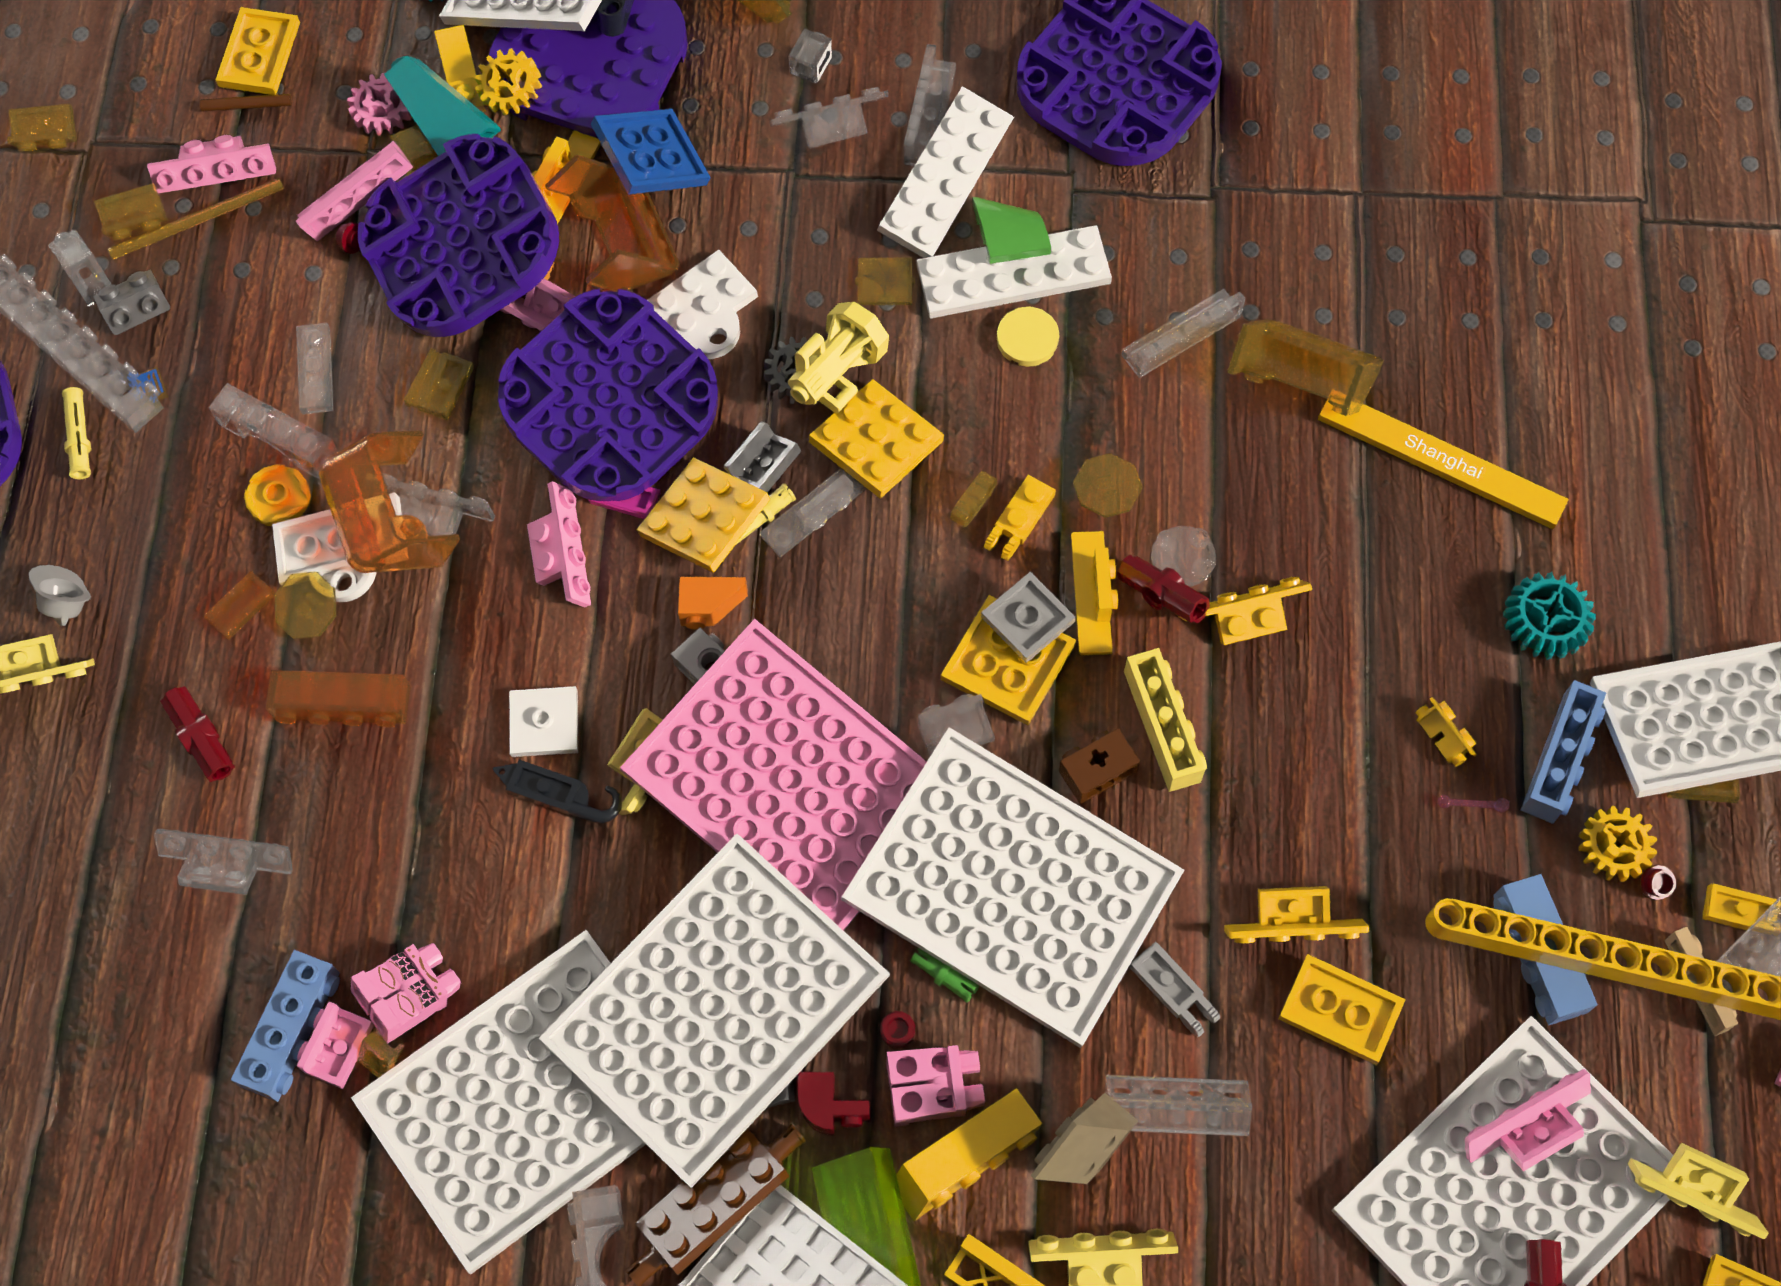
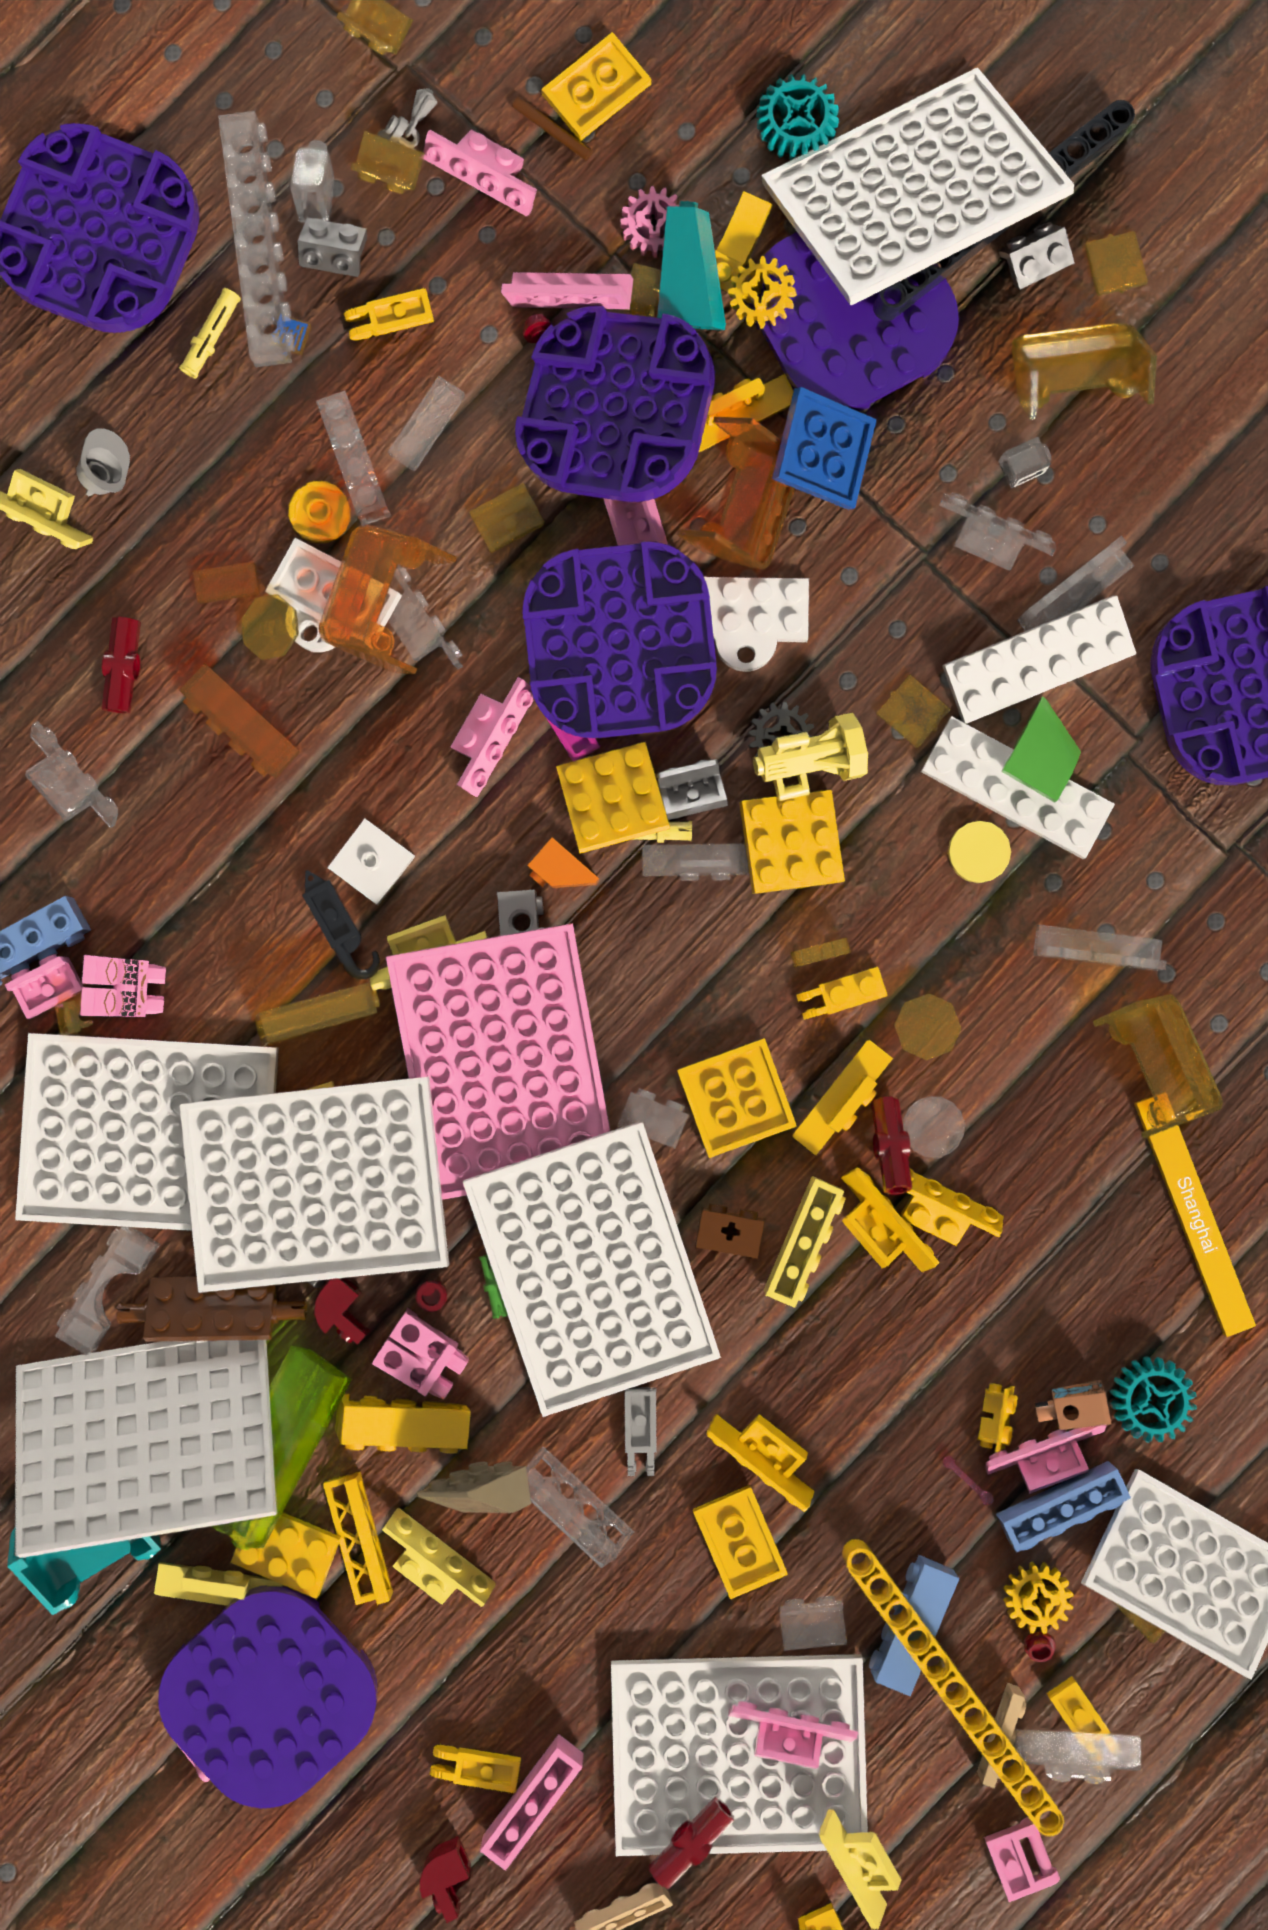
camera: 40 degrees right, 20 degrees up
(127, 156) = (396, 126): none -> light grey piece
(195, 218) = (435, 208): clear yellow piece -> none
(219, 313) = (391, 314): none -> yellow hinge
(595, 876) = (316, 1014): none -> clear yellow slope
(1028, 617) = (774, 1083): light grey plate -> none
(1217, 659) = (881, 1227): none -> yellow bracket
(1463, 1023) = (812, 1623): none -> clear bracket
(1503, 659) = (1089, 1408): none -> nougat torso
(1517, 727) = (1049, 1460): none -> bright pink bracket

